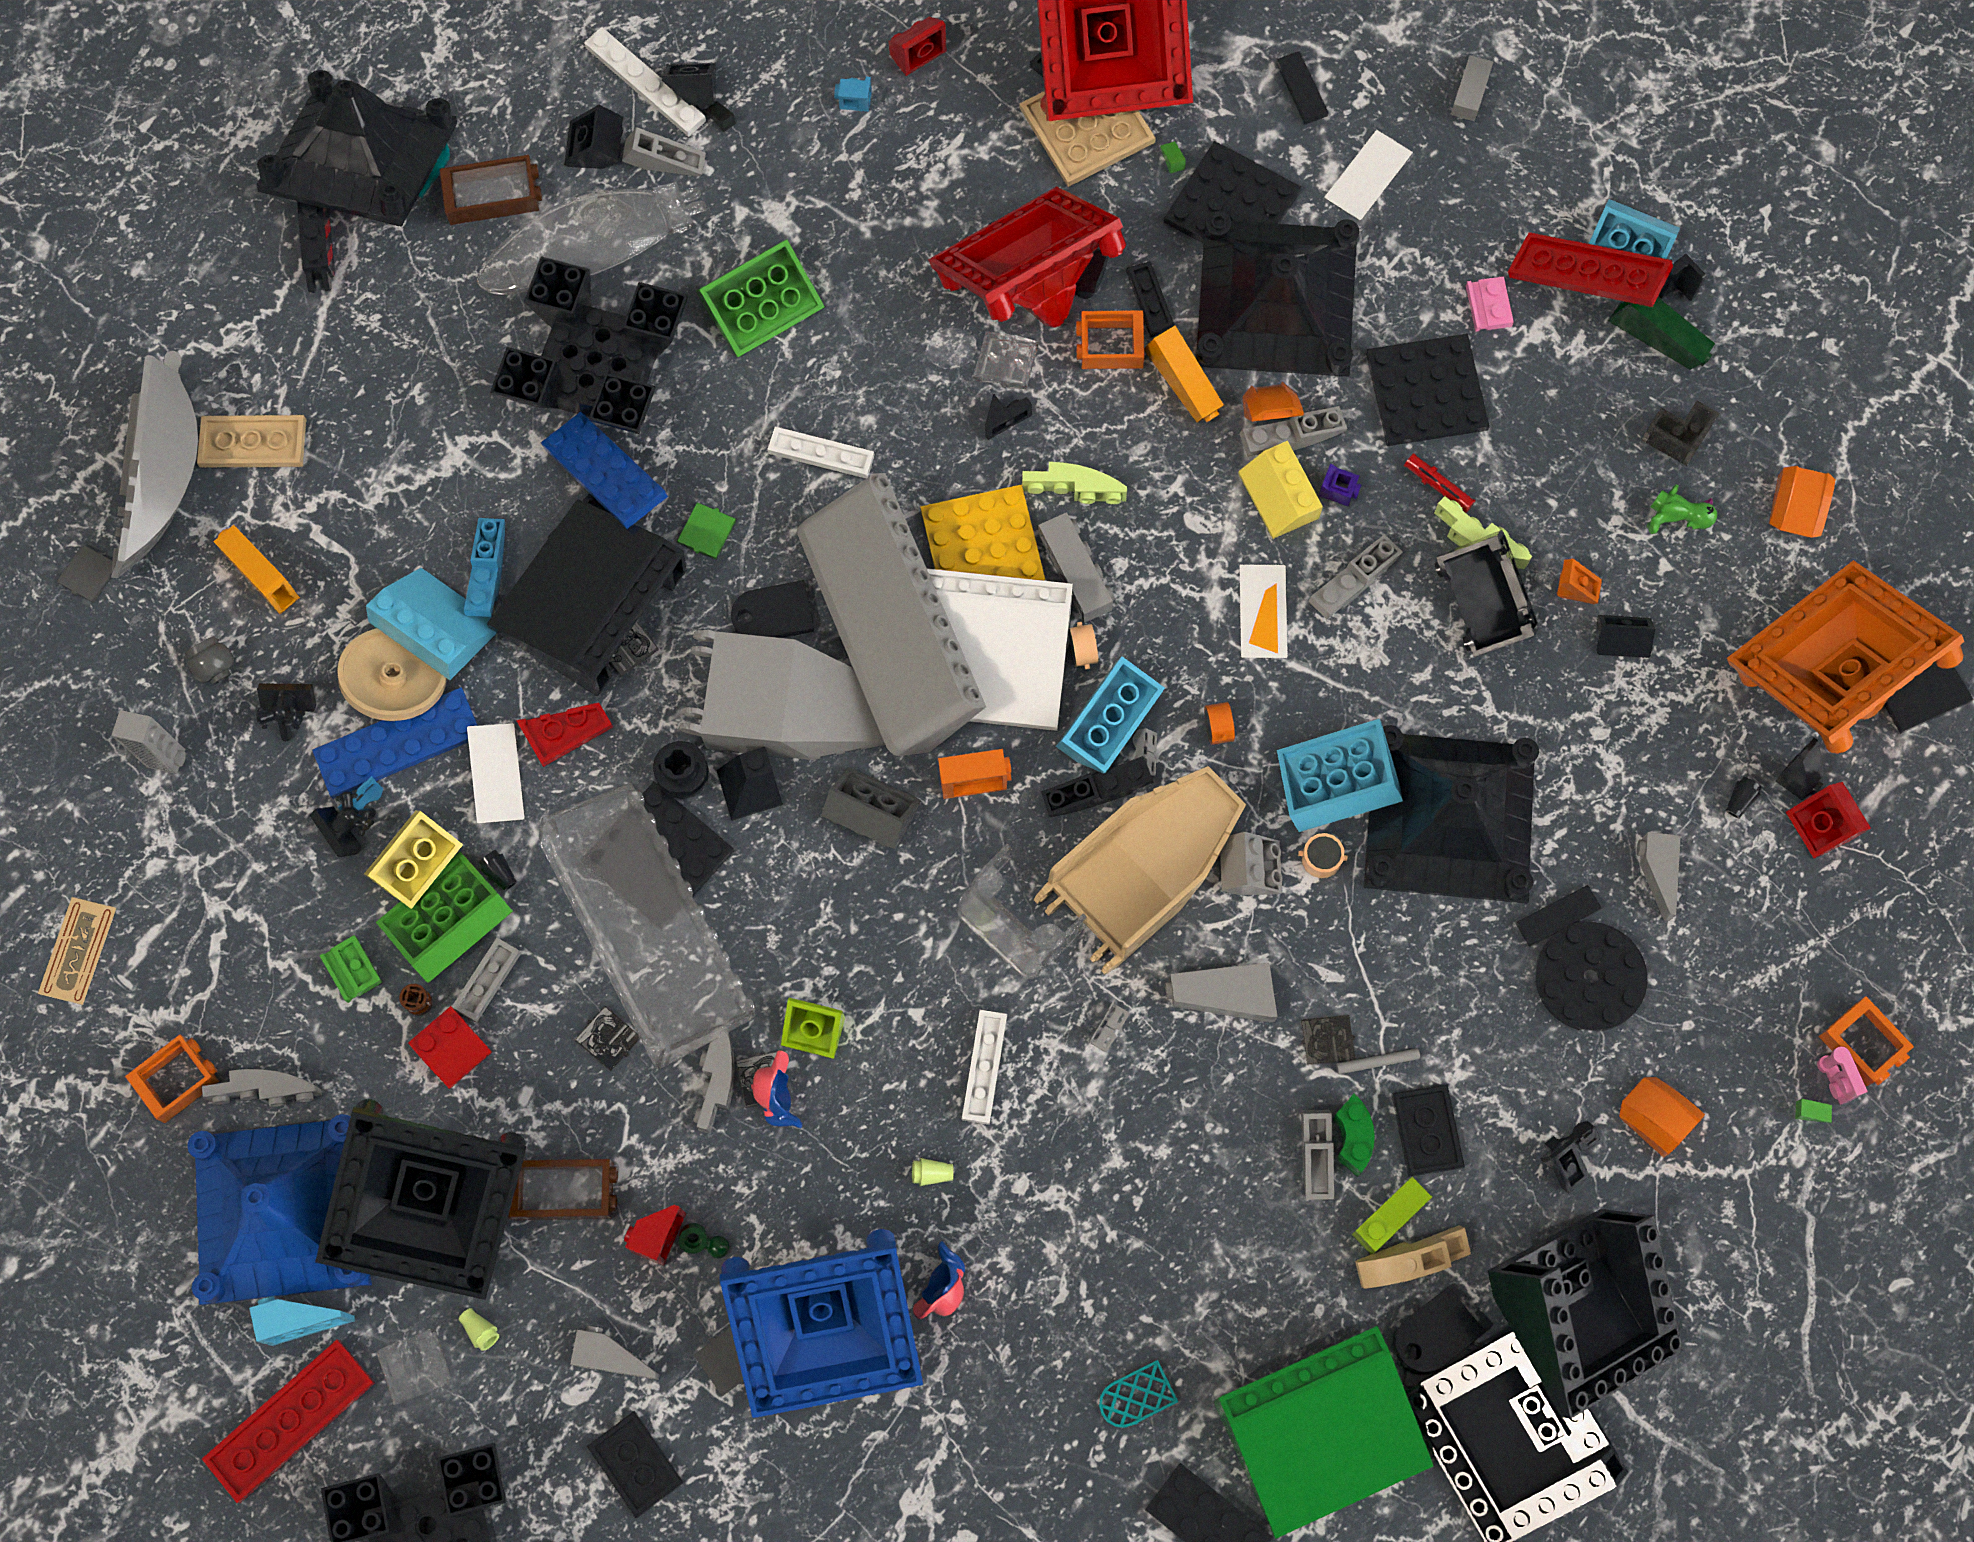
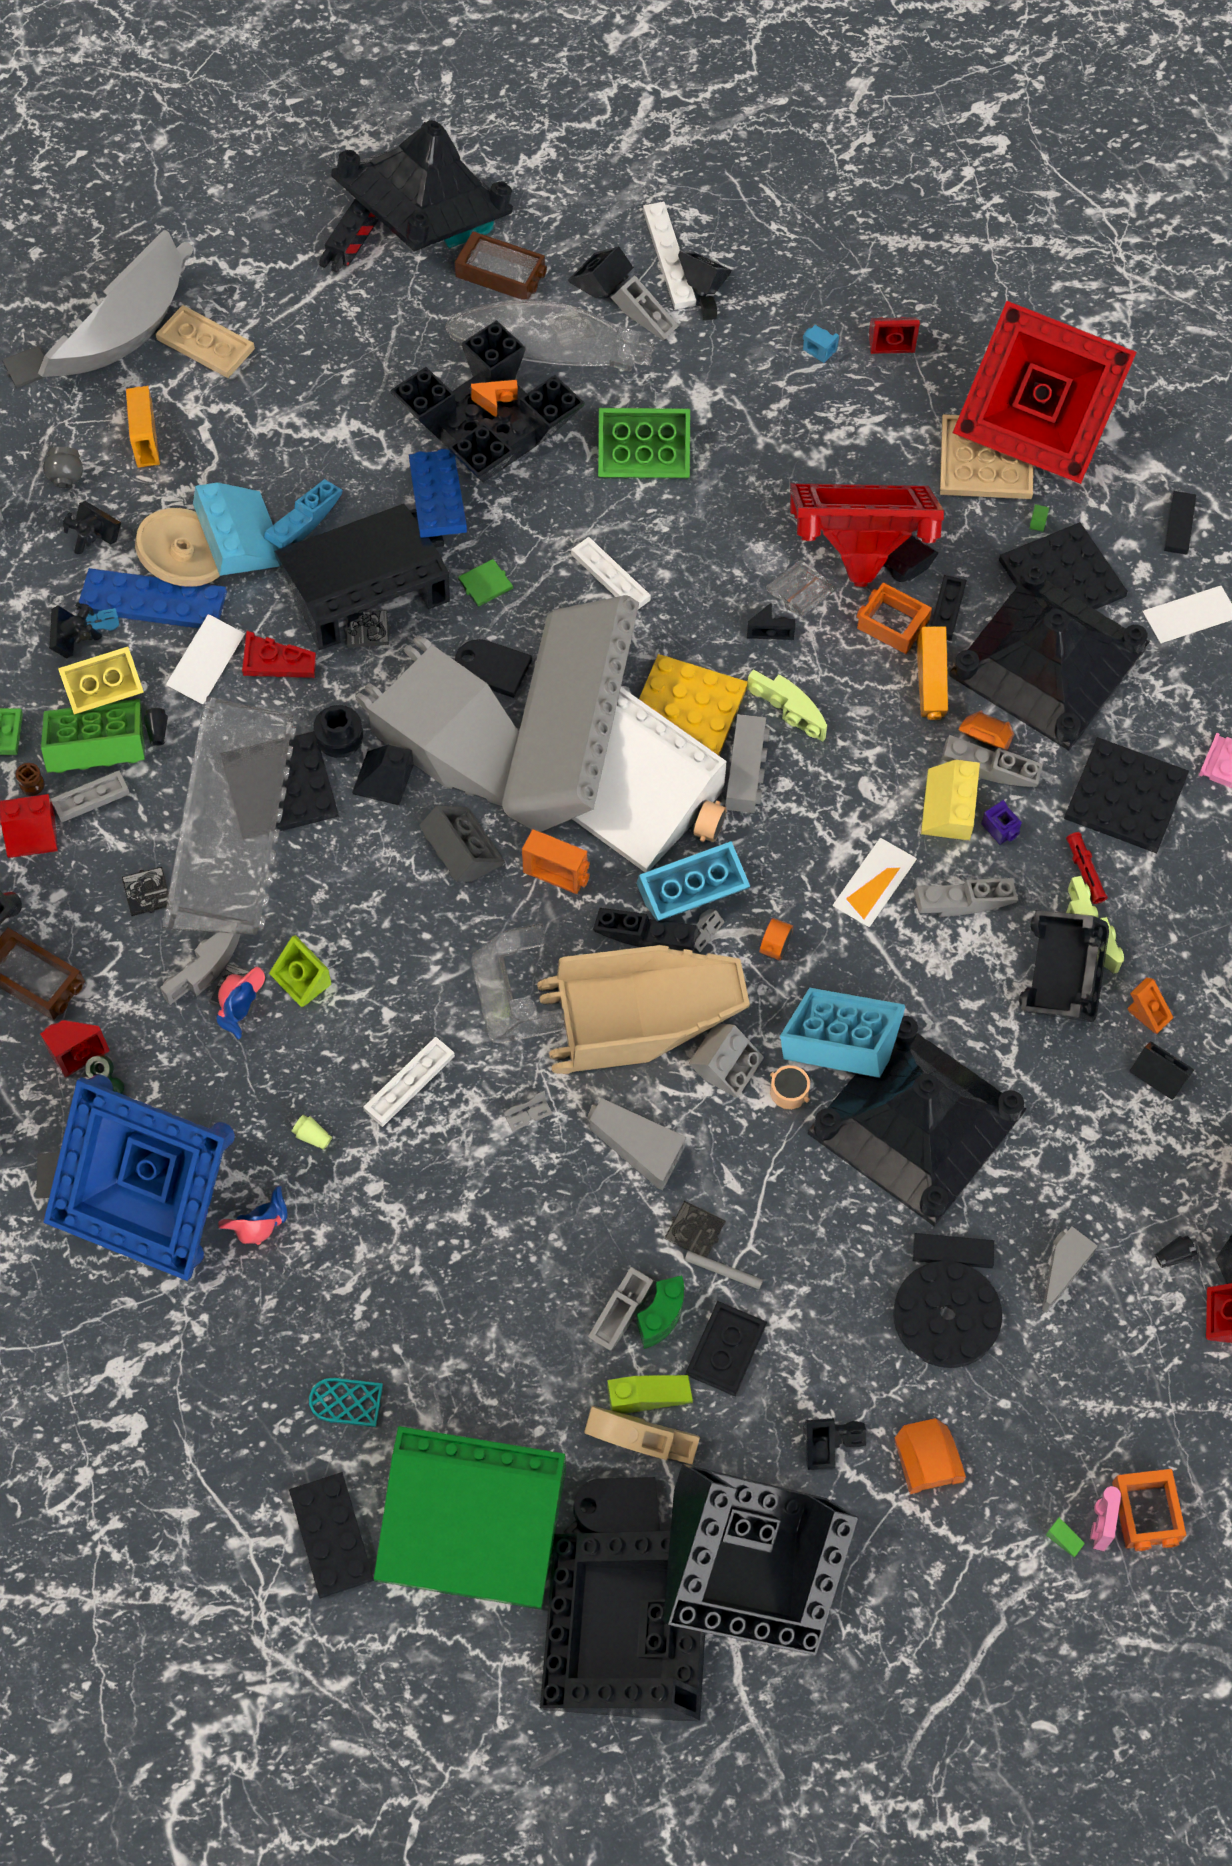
camera: 30 degrees right, 10 degrees down
(585, 338) = (490, 392): none -> orange slope

